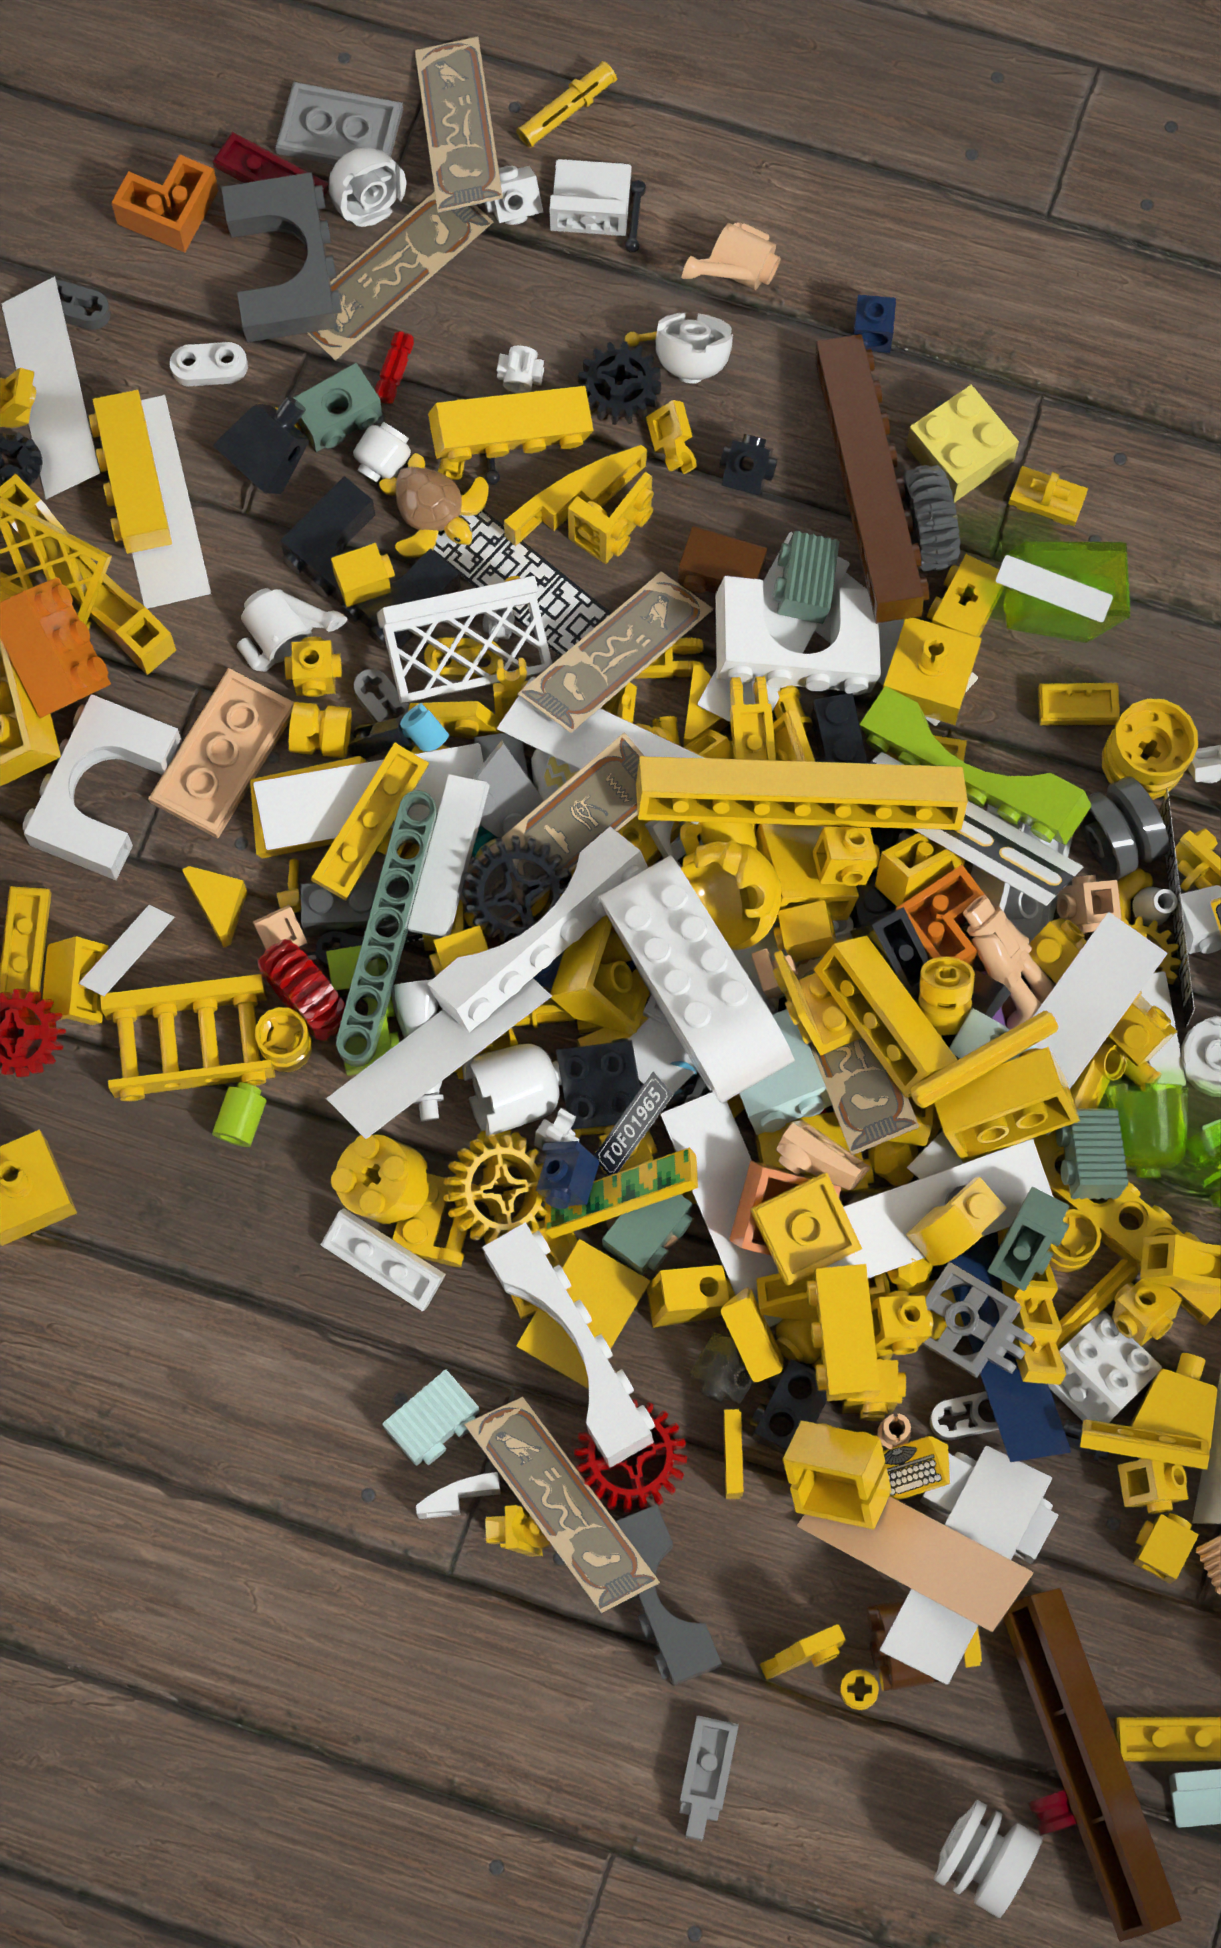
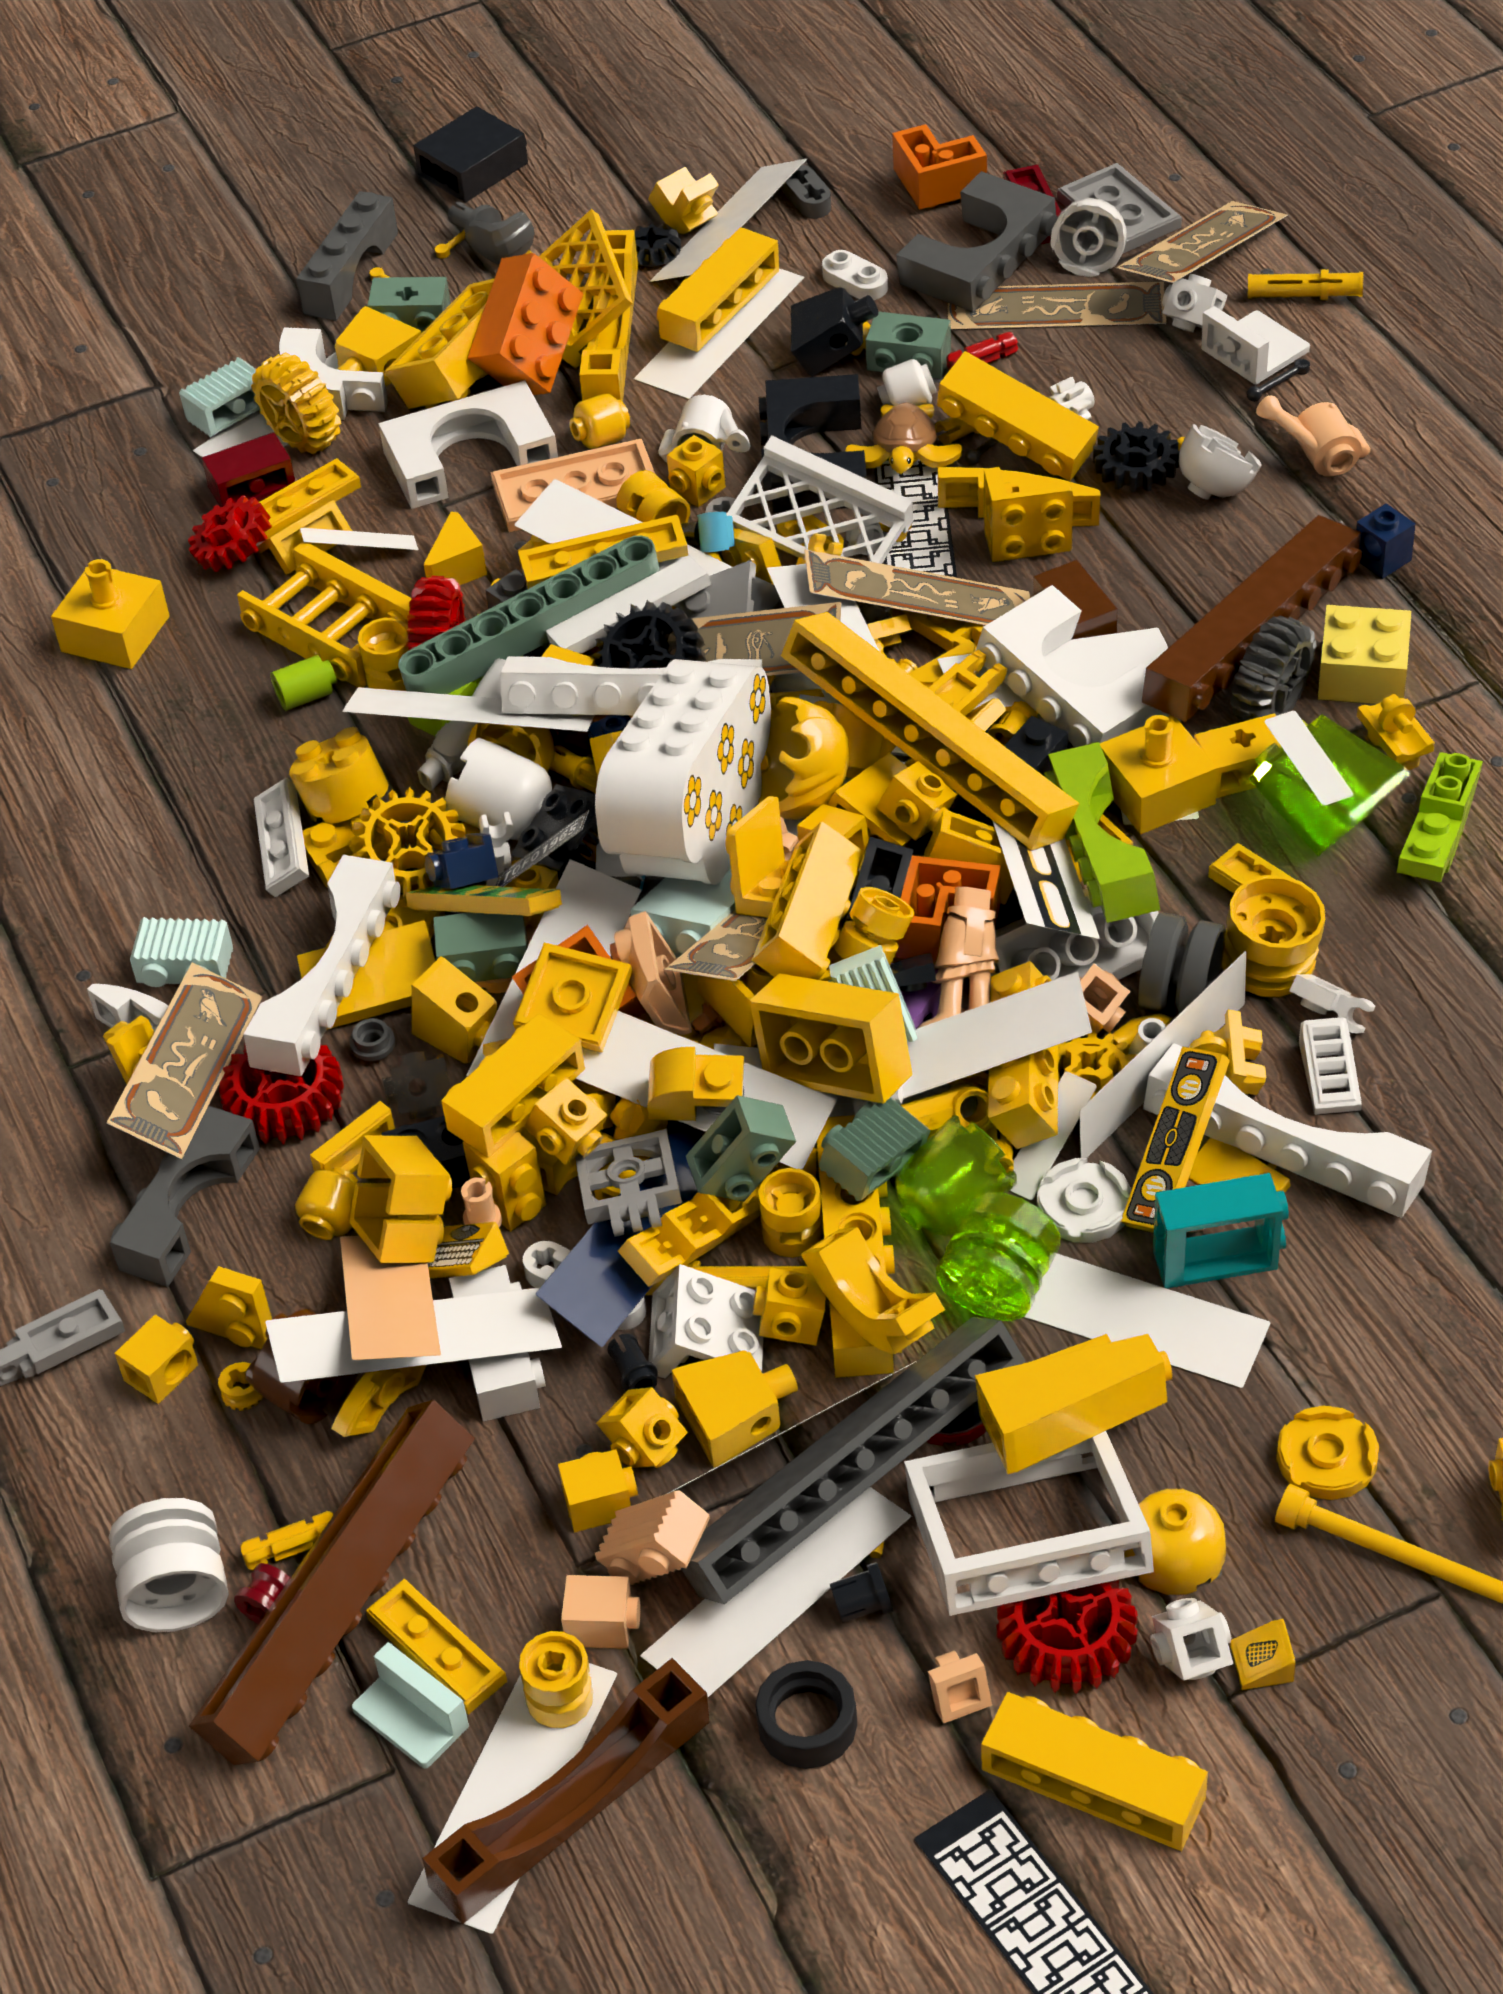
camera: 50 degrees right, 25 degrees down
(185, 681) = (599, 421): none -> yellow head
(279, 926) = (473, 592): light nougat tile -> none
(362, 574) = (790, 420): yellow brick -> none
(646, 1349) = (372, 1040): none -> dark grey plate
(668, 432) = (1137, 509): yellow plate -> none
(735, 473) = (1170, 557): black brick -> none
(752, 1336) = (457, 1053): yellow slope -> none
(767, 1510) = (326, 1203): none -> yellow head
(792, 1725) = (157, 1358): none -> yellow brick
(807, 577) = (1125, 644): sand green brick -> none
(871, 1154) = (706, 1020): none -> dark orange piece
(984, 1059) = (839, 970): yellow axle -> none
(1017, 1761) = (284, 1541): none -> yellow axle
(1145, 1444) = (661, 1379): yellow tile -> none
(1148, 555) = (1440, 817): none -> lime slope

